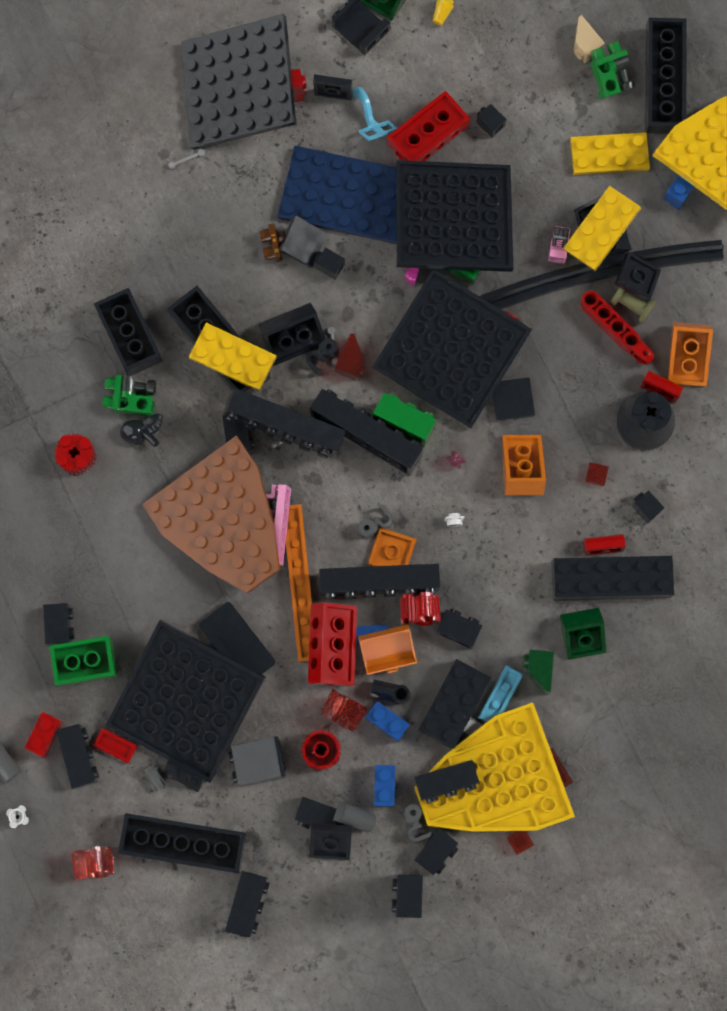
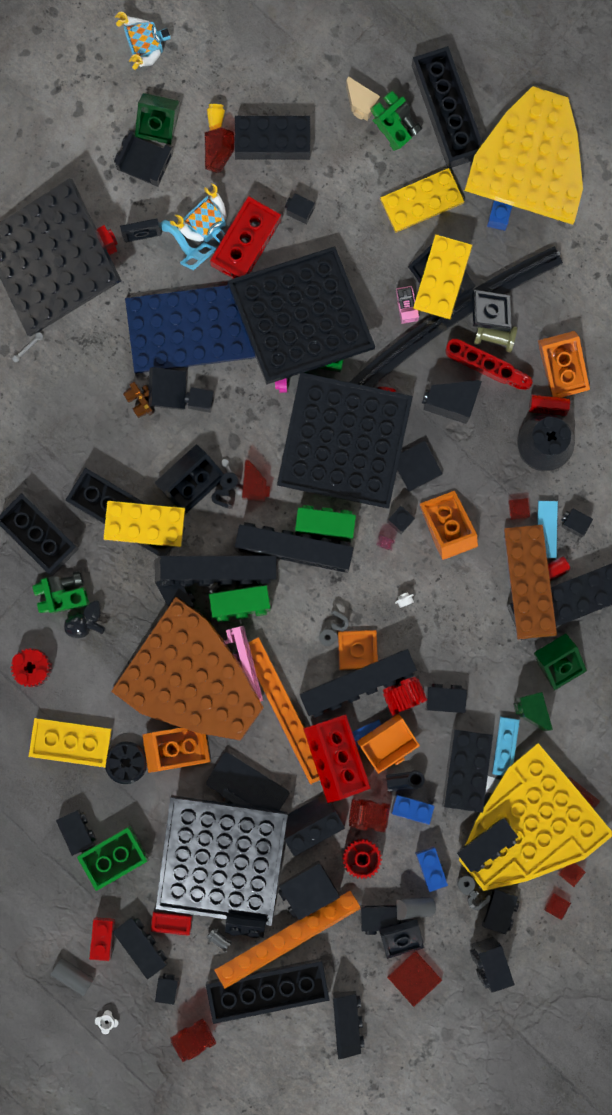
camera: 25 degrees left, 5 degrees up
(85, 538) = (70, 742): none -> yellow plate
(87, 806) = (167, 989): none -> black brick
(124, 587) = (127, 774): none -> black wheel
(182, 580) = (175, 749): none -> orange slope
(220, 800) = (286, 939): none -> orange plate
(284, 701) = (311, 825): none -> black slope
(295, 464) = (240, 603): none -> green brick
(329, 886) = (414, 978): none -> clear red tile
(396, 100) = (205, 219): none -> torso
(434, 38) = (218, 148): none -> clear red slope
(478, 443) = (400, 520): none -> black brick
(489, 46) = (272, 137): none -> black brick
(494, 869) = (557, 906): none -> clear red plate
(569, 346) = (452, 399): none -> black slope
(581, 544) = (530, 582): none -> dark orange plate
(616, 503) = (548, 517): none -> medium azure tile

